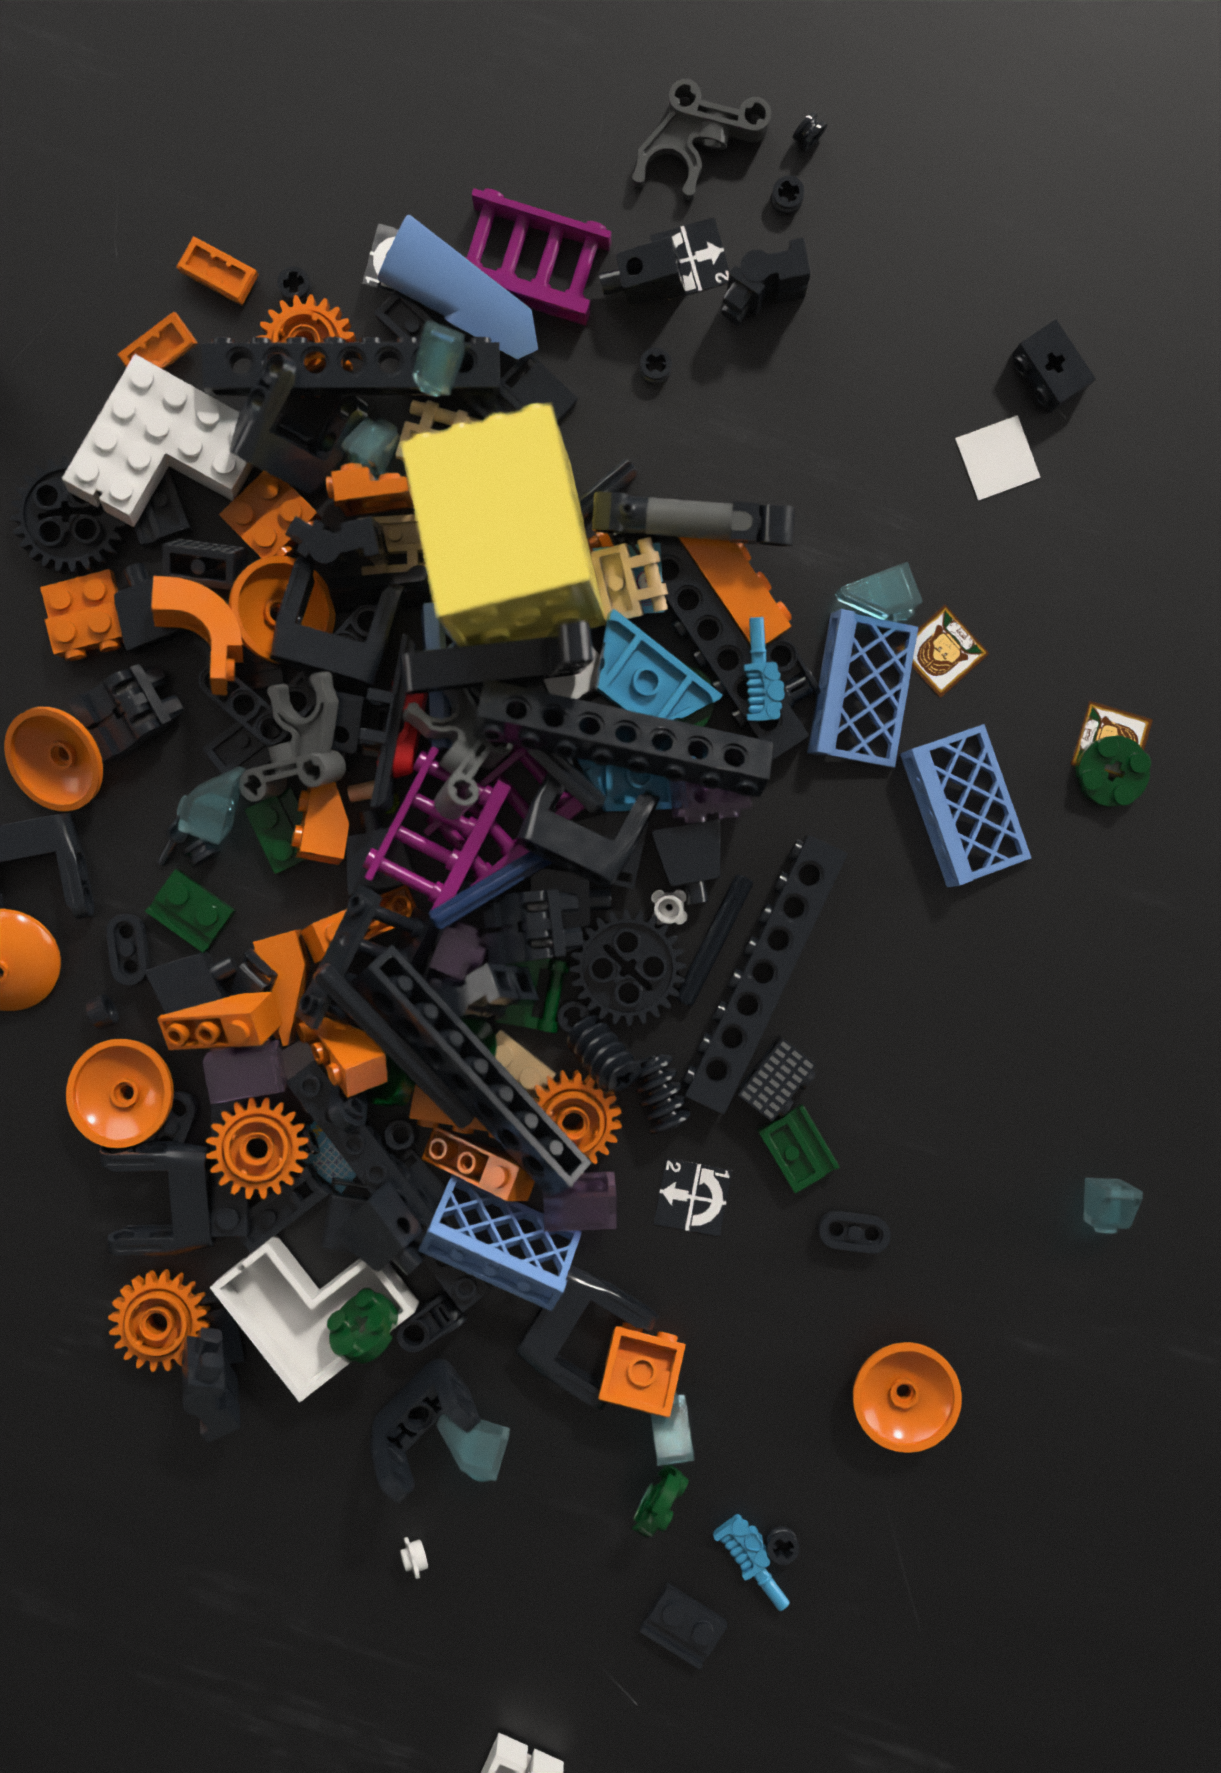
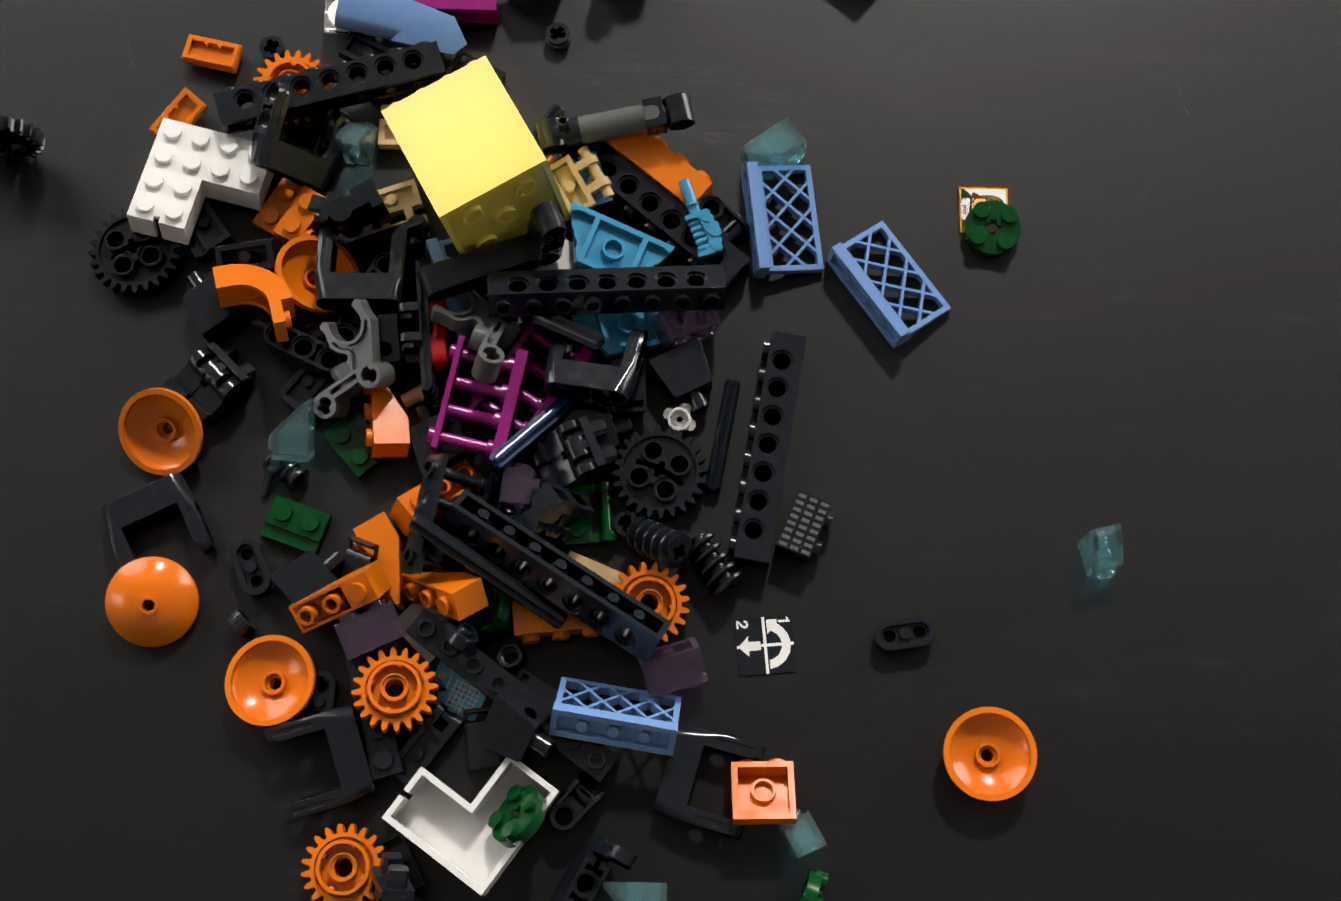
camera: 15 degrees left, 15 degrees down
(82, 615) = (162, 322): orange plate -> none
(359, 494) = (352, 169): orange plate -> none
(438, 359) = (394, 56): clear light blue slope -> none
(478, 1164) = (583, 662): orange slope -> none
(798, 1148) = (838, 579): dark green plate -> none
(945, 651) = (836, 178): sticker -> none
(997, 457) = (832, 35): white sticker -> none

